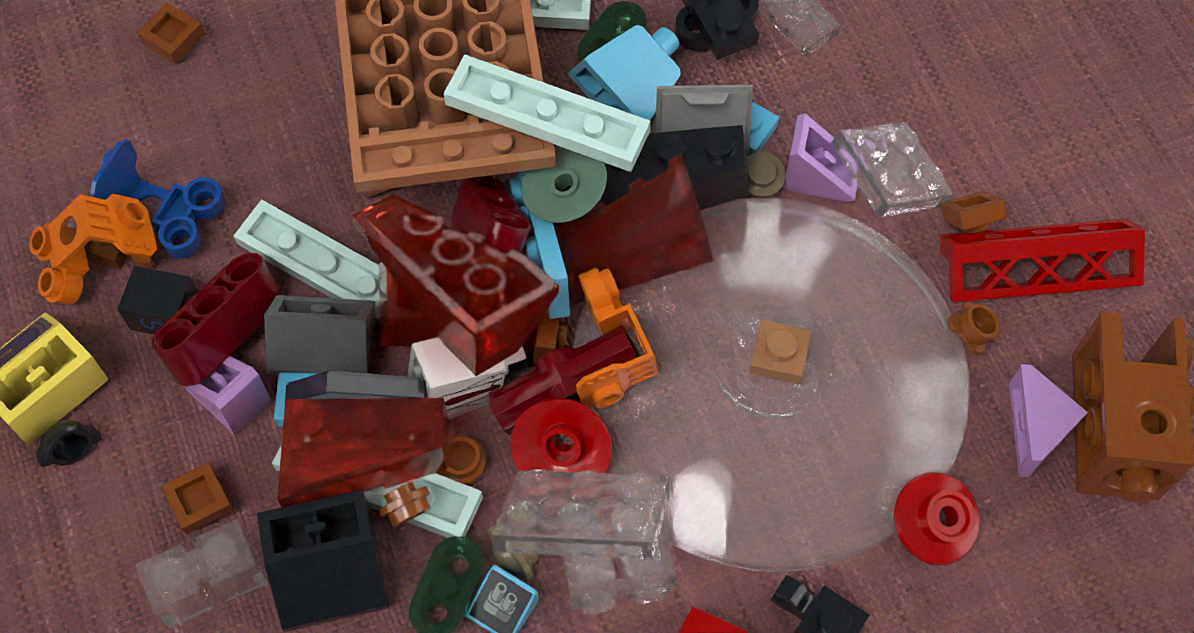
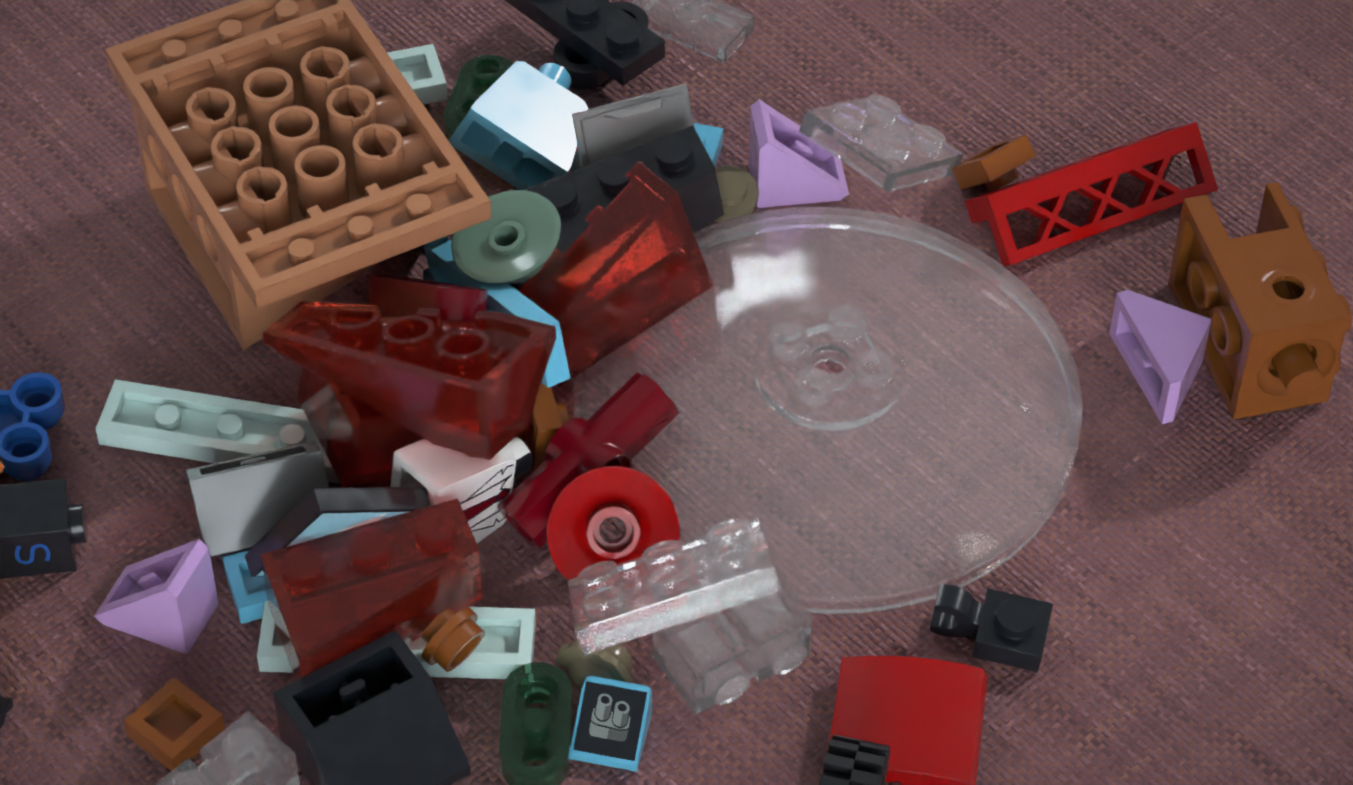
camera: 20 degrees left, 15 degrees down
(216, 319) = (119, 518): dark red beam -> none
(465, 460) = (500, 585): dark orange plate -> none
(547, 112) = (463, 152): light aqua plate -> none
(609, 383) = (607, 365): orange piece -> none
(780, 352) = (837, 344): medium nougat plate -> none
(919, 522) = (1087, 486): red piece -> none
(975, 326) = (1047, 278): dark orange plate -> none

